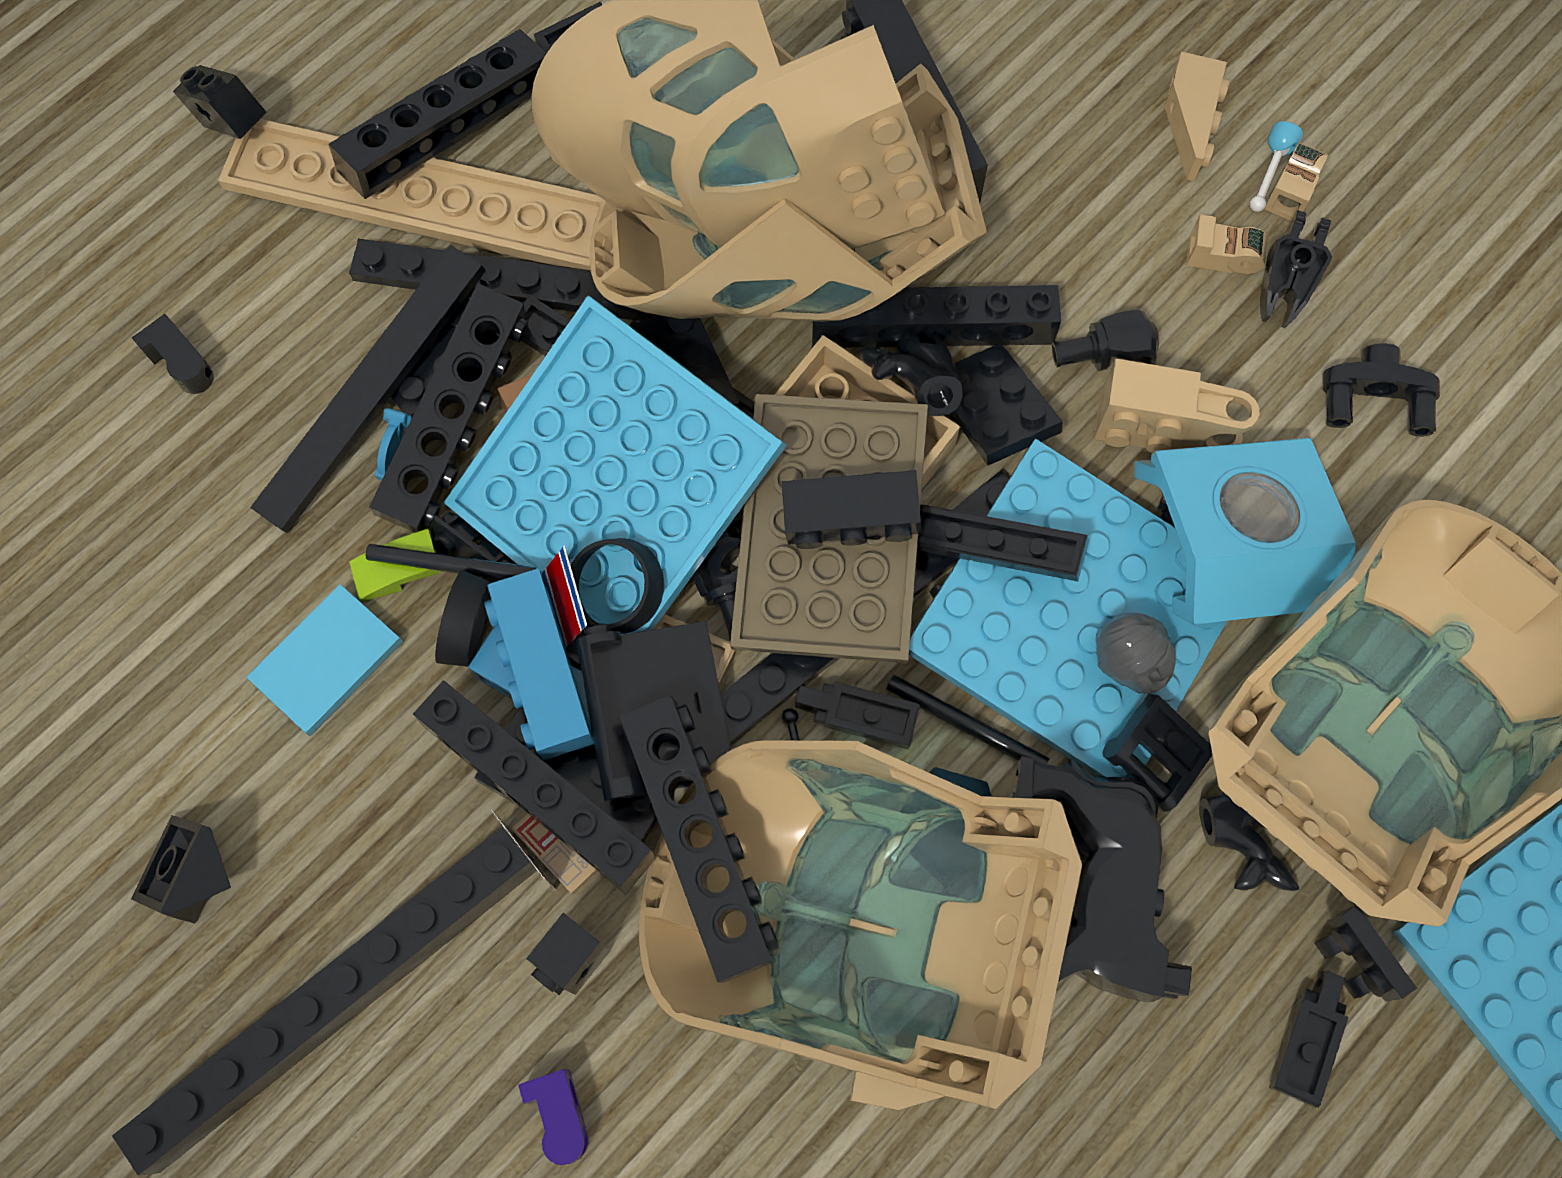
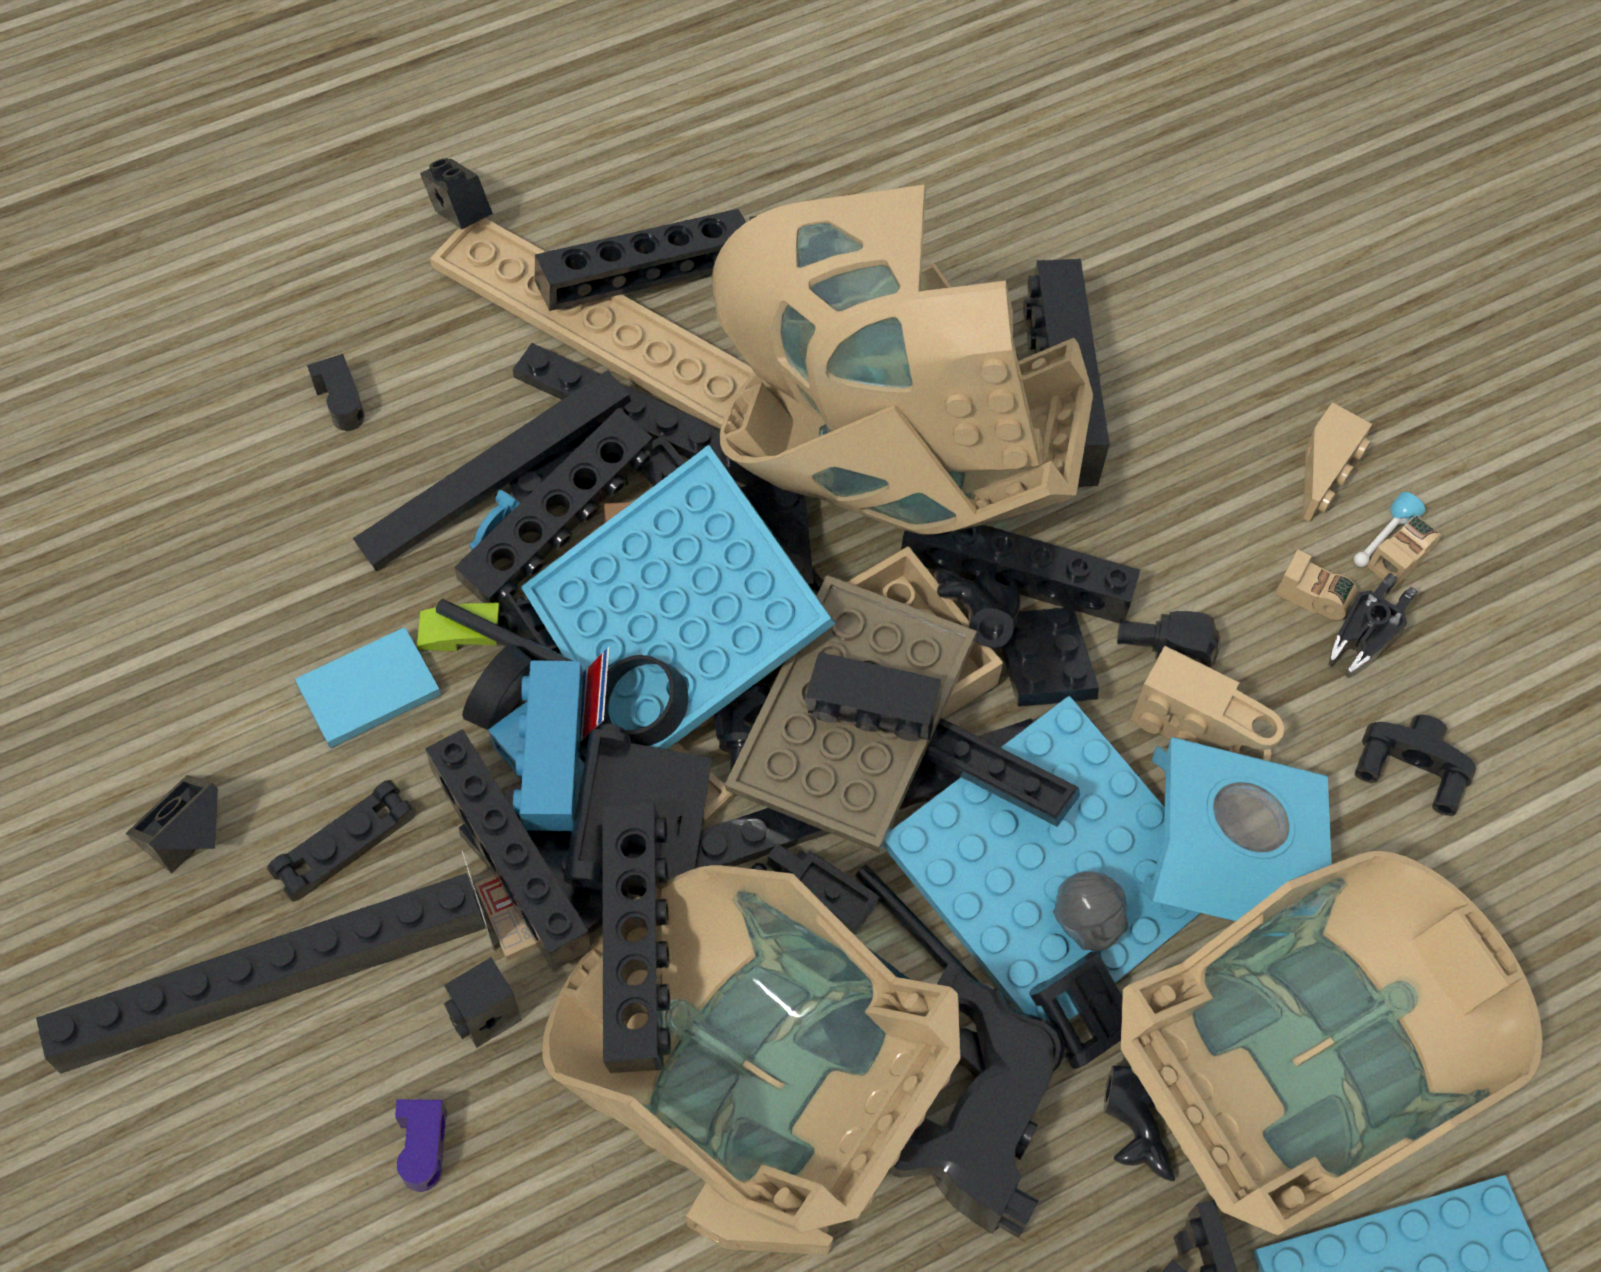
camera: 15 degrees right, 10 degrees down
(359, 831) = (342, 841): none -> black plate

